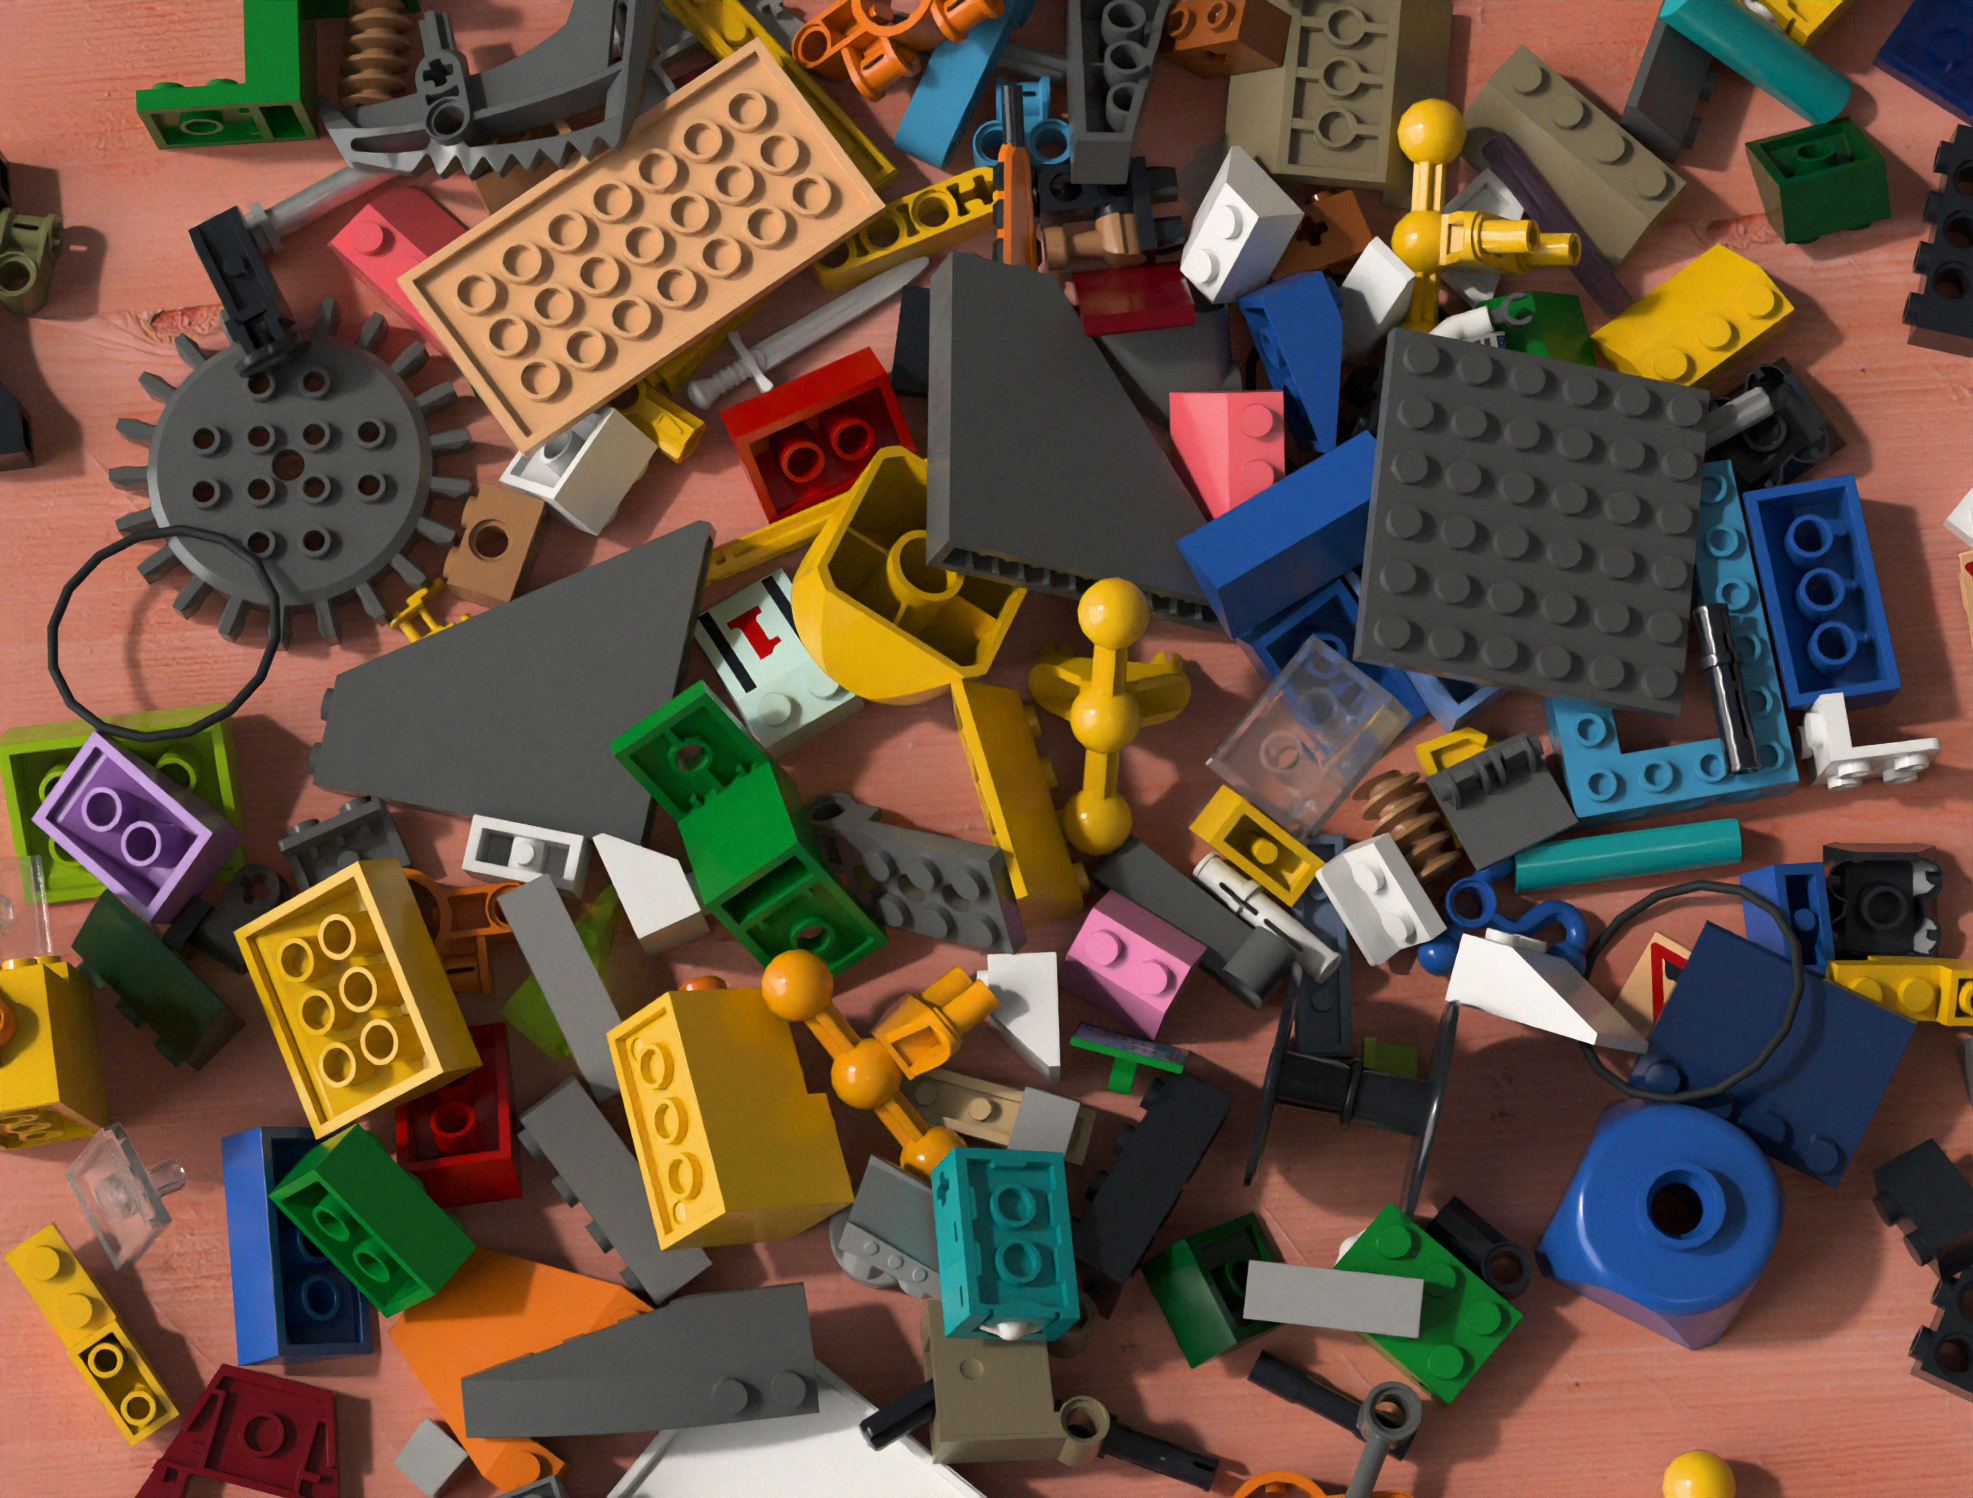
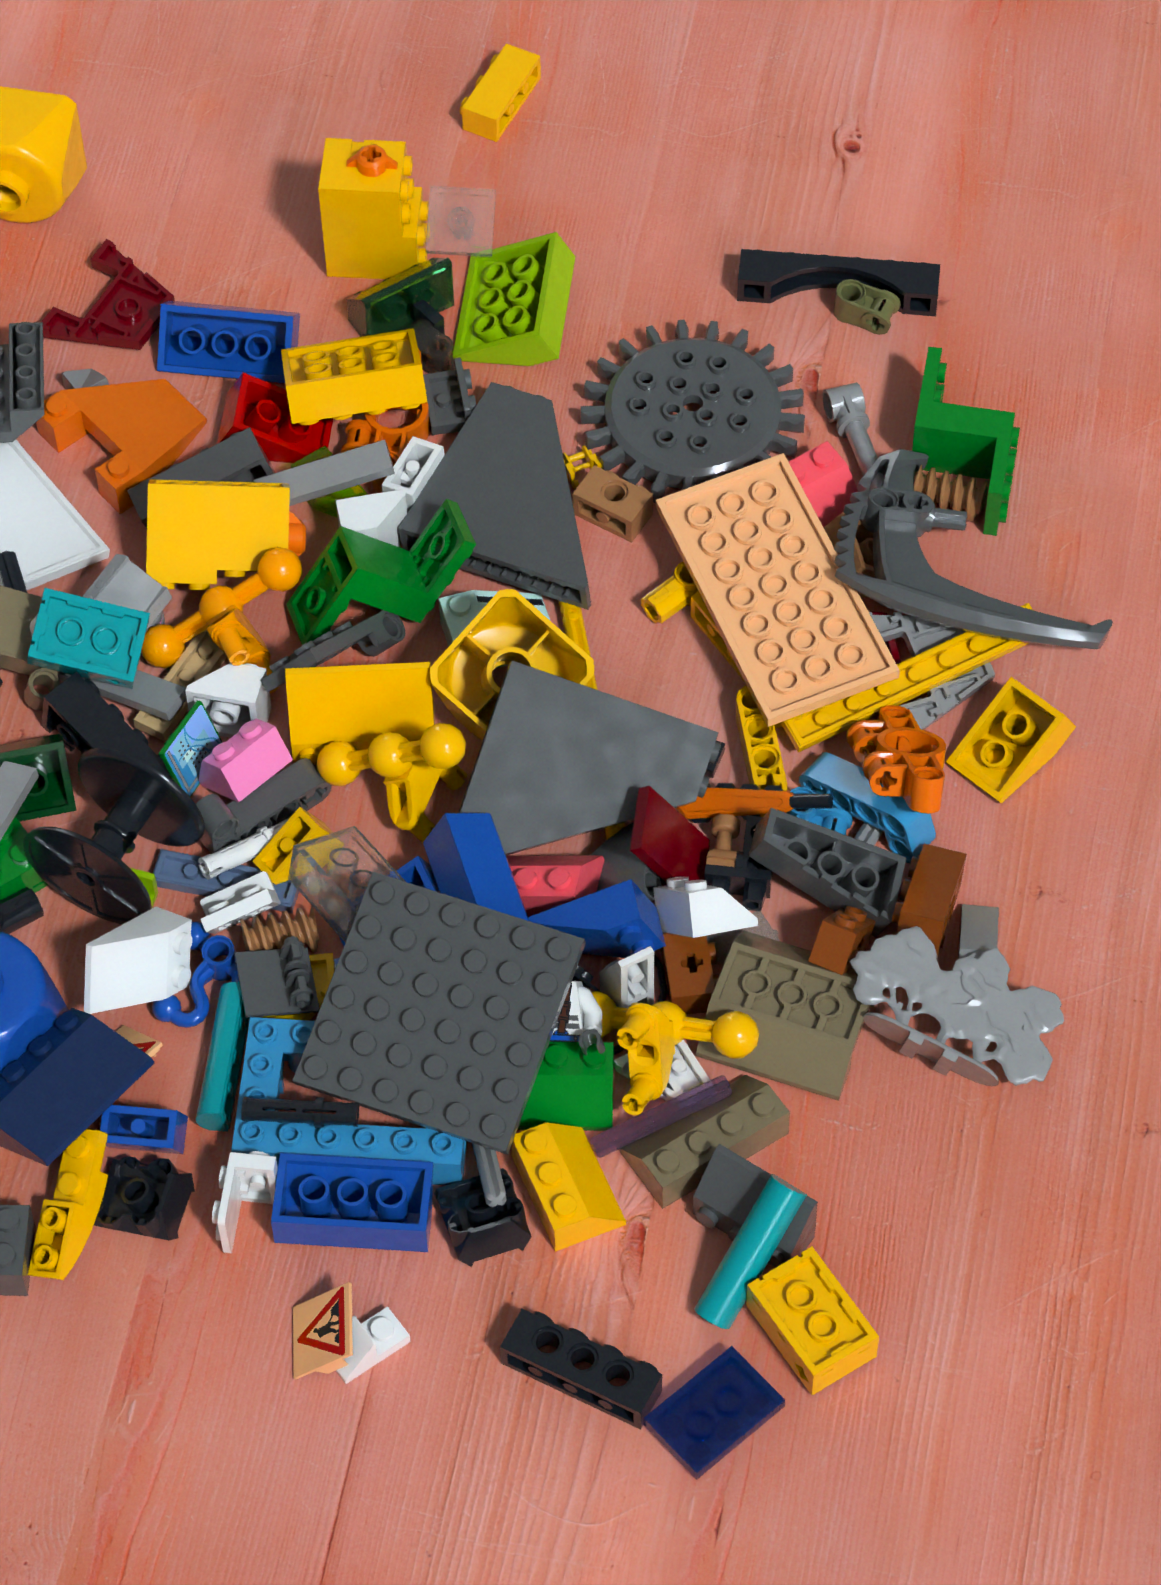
camera: 100 degrees right, 20 degrees down
(93, 1333) = (204, 249): yellow slope -> none
(123, 1195) = (283, 263): clear tile -> none
(136, 829) = (486, 294): medium lavender slope -> none
(240, 698) = (607, 374): black piece -> none
(248, 294) = (800, 394): black piece -> none
(373, 1220) = (220, 358): green brick -> none
(584, 469) = (644, 549): white slope -> none
(671, 1368) = (81, 480): dark grey wedge -> none
(802, 334) = (701, 667): white sword -> none
(816, 433) = (639, 665): red slope -> none
(1769, 1048) = (101, 1094): black piece -> none
(1819, 180) = (651, 1287): dark green slope -> none

